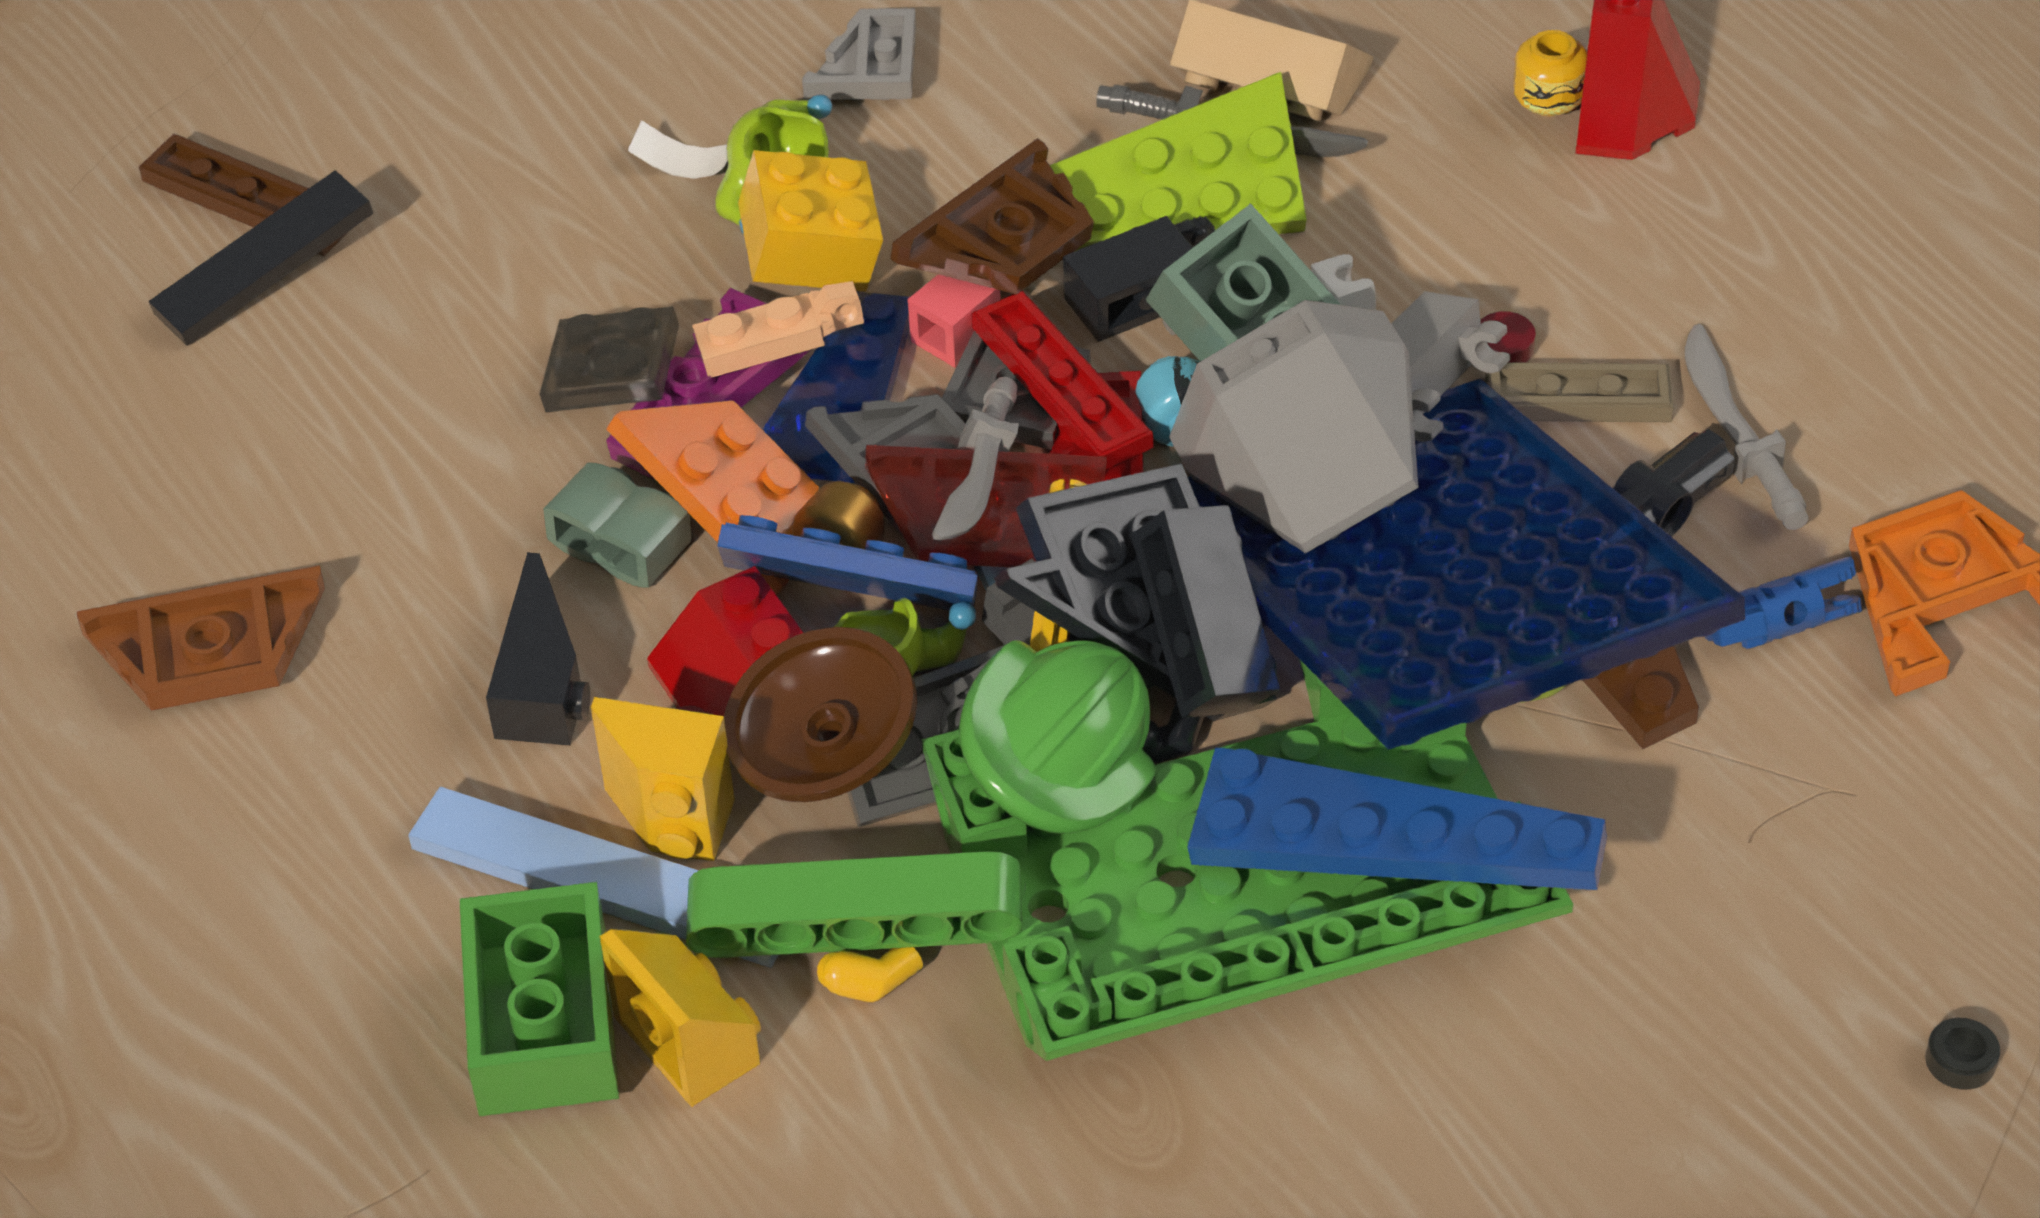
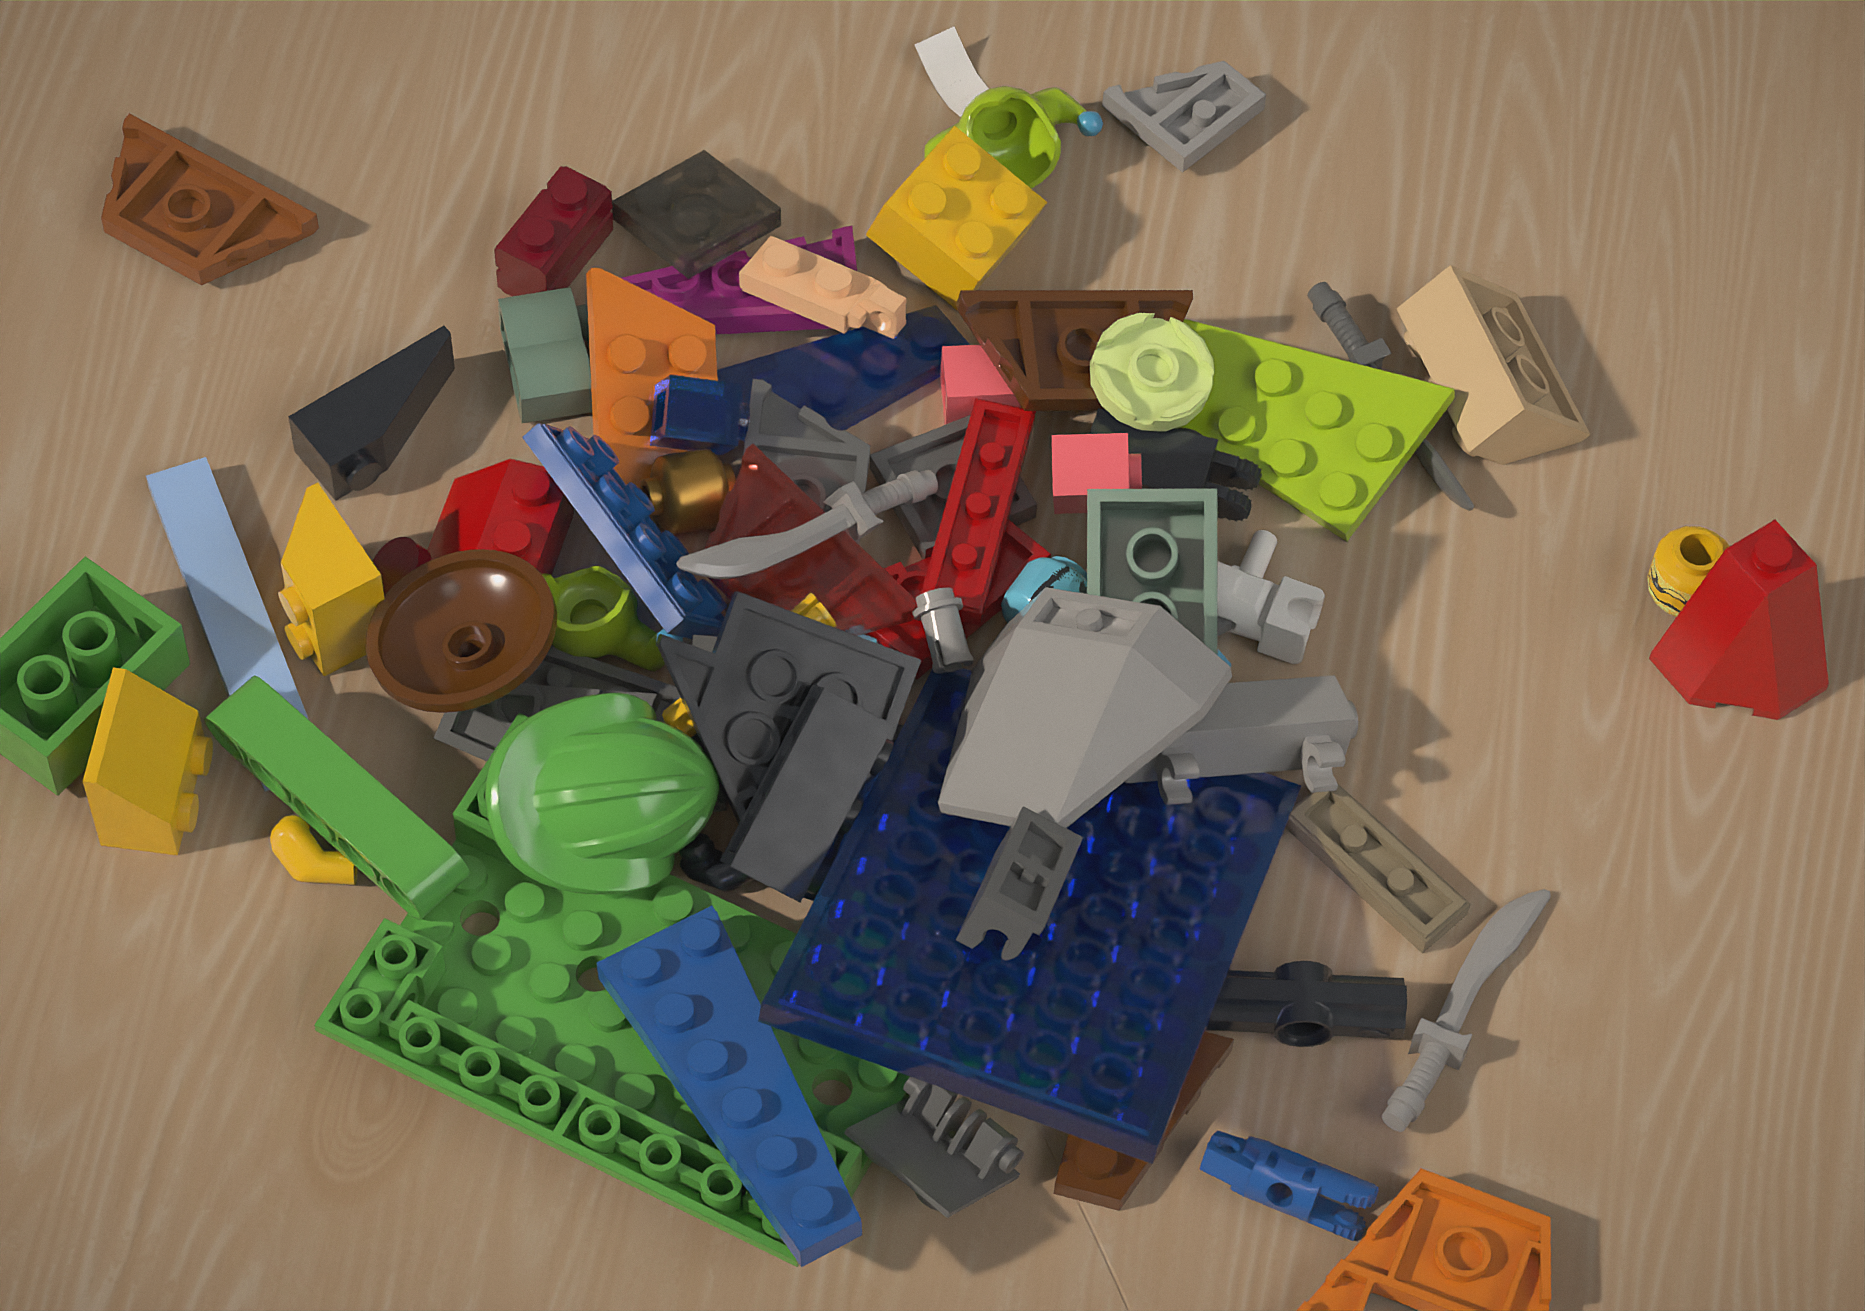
camera: 40 degrees right, 10 degrees up
(526, 445) = (555, 235): none -> dark red brick
(797, 460) = (698, 414): none -> clear blue brick
(1078, 202) = (1151, 372): none -> yellowish green tile
(1116, 286) = (1091, 463): none -> coral brick
(1139, 451) = (943, 629): none -> light grey pin
(1435, 532) = (1021, 882): none -> dark grey hinge
(1518, 340) = (1374, 769): dark red tile -> none
(1584, 774) = (934, 1153): none -> dark grey hinge

